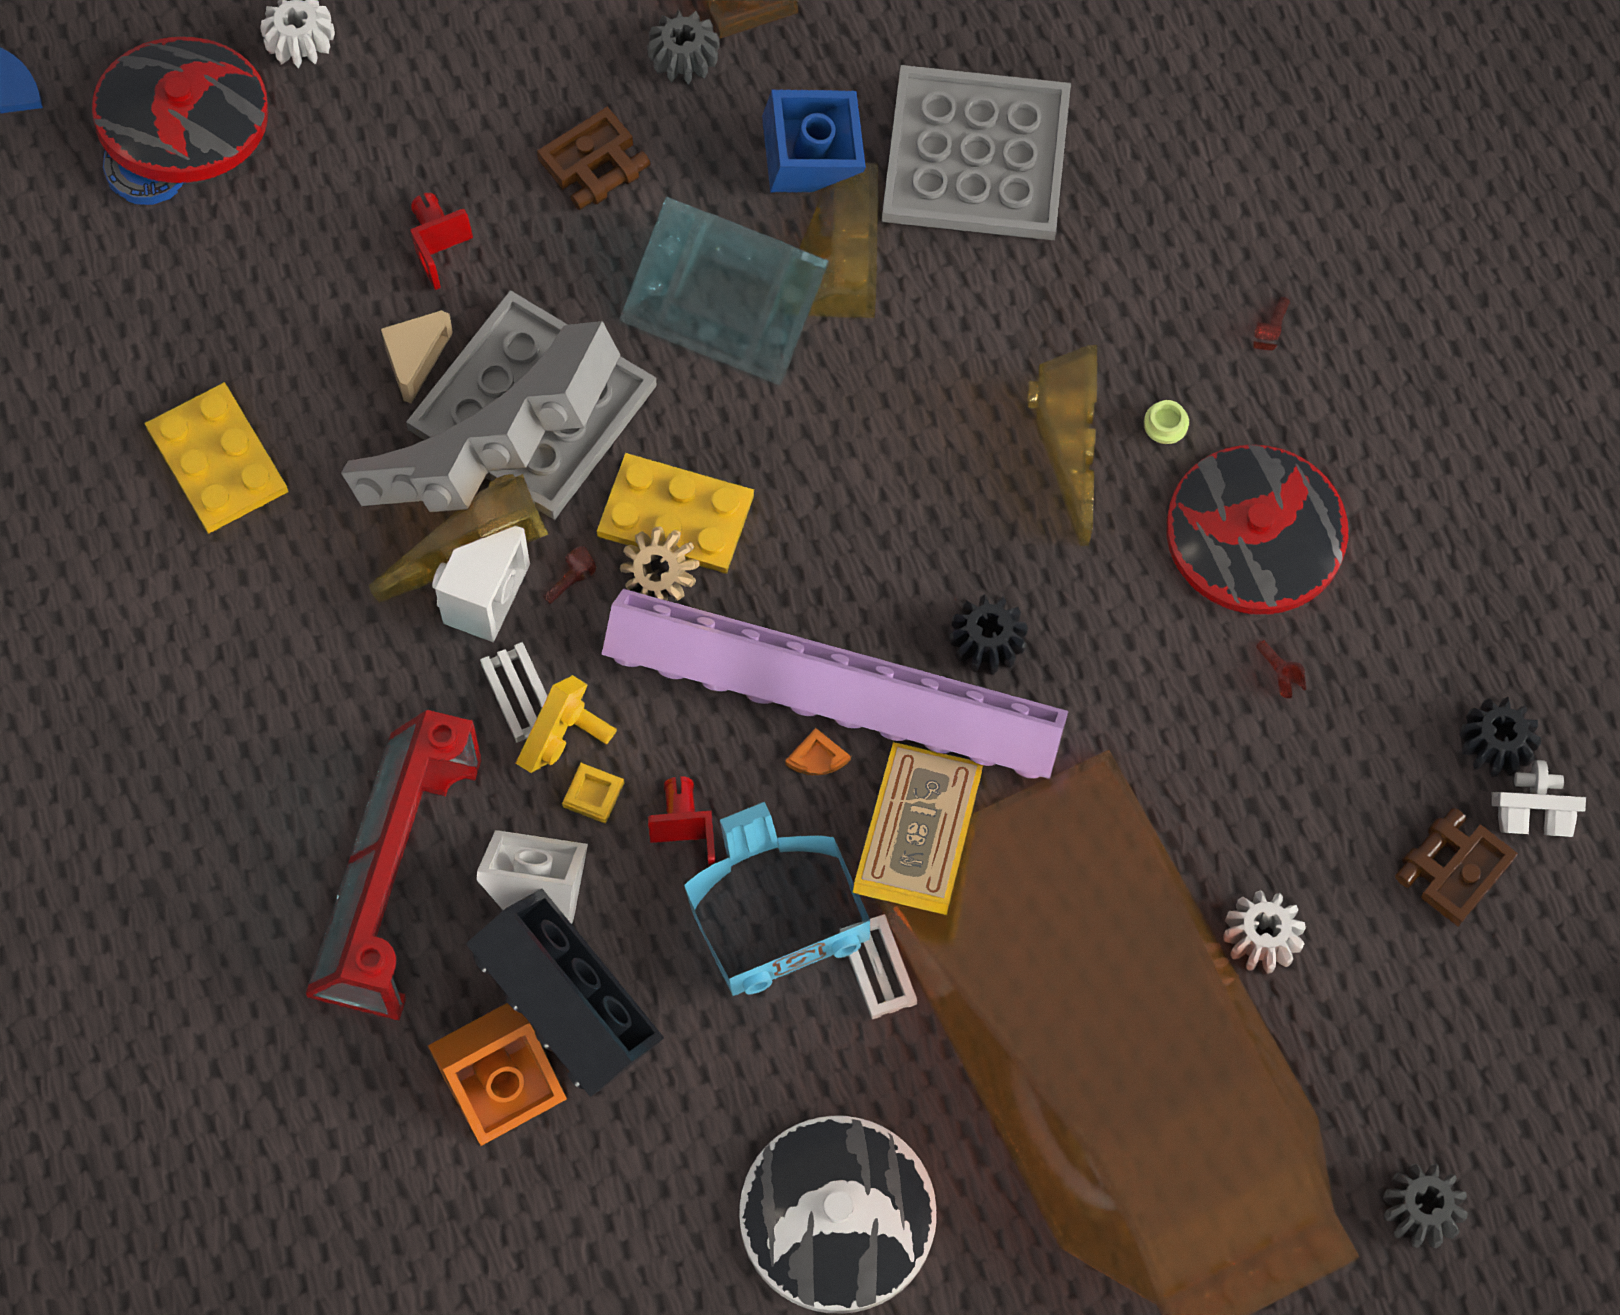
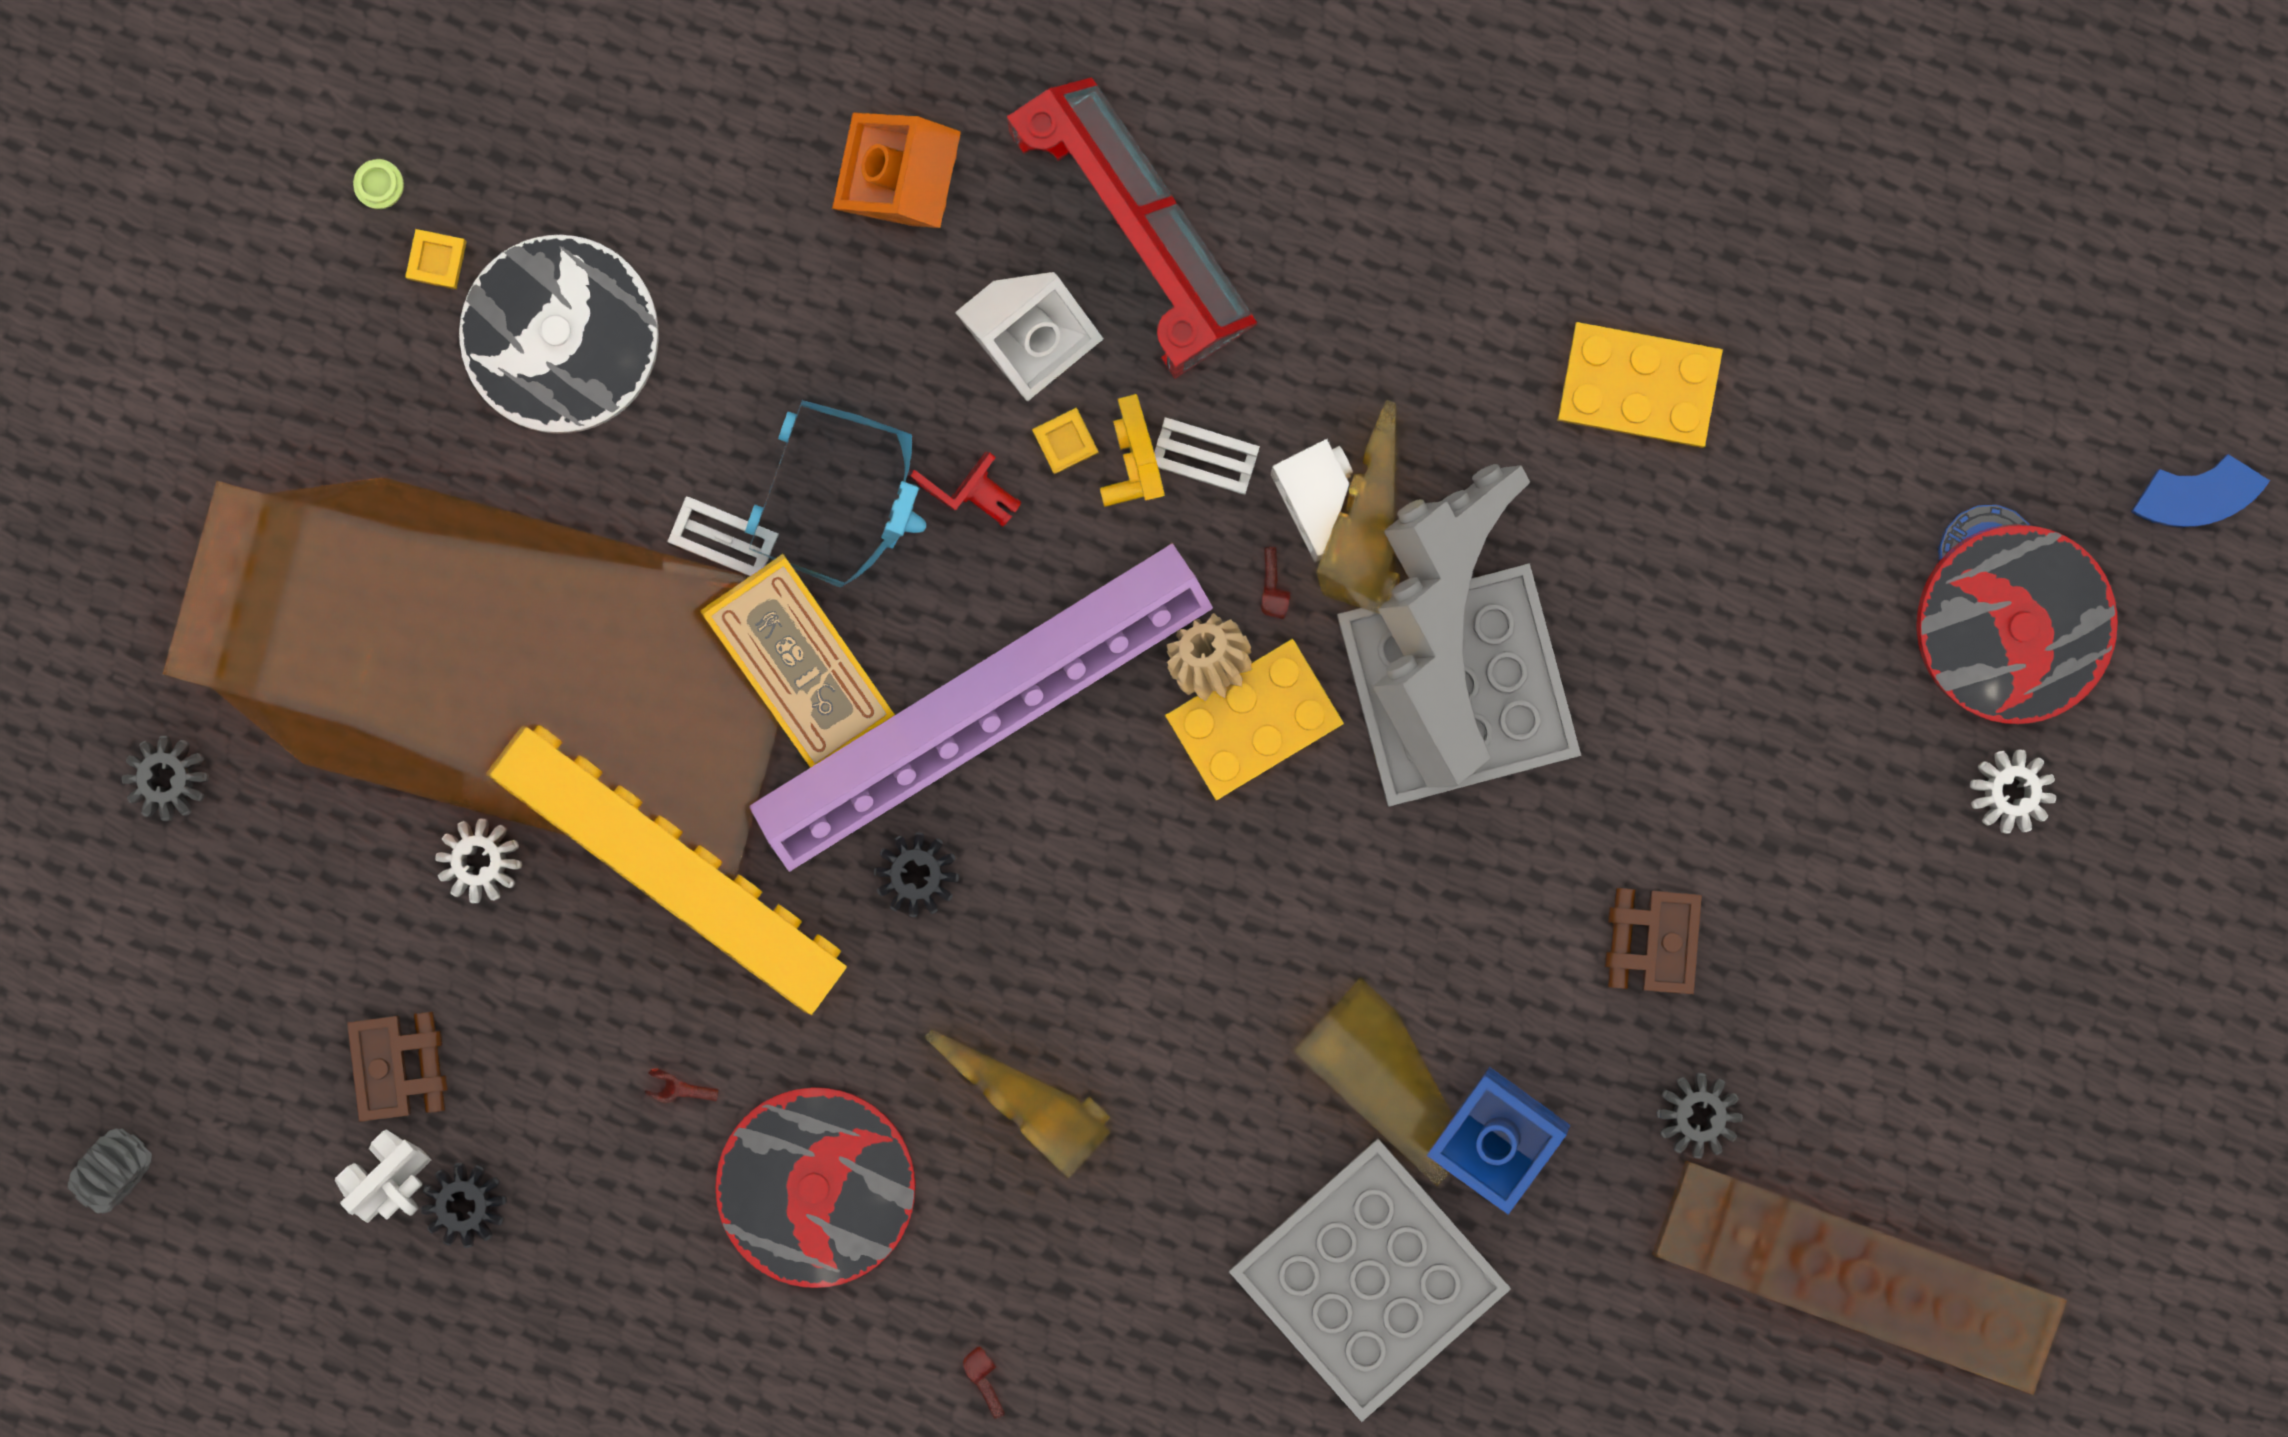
camera: 135 degrees right, 20 degrees up
(415, 349) = (1594, 625): tan slope -> none
(436, 232) = (1696, 743): red bracket -> none
(564, 991) = (898, 261): black brick -> none
(724, 290) = (1422, 942): clear light blue slope -> none
(817, 755) = (939, 647): orange tile -> none
(1149, 789) = (666, 869): none -> yellow brick
(1166, 422) = (975, 1202): yellowish green plate -> none

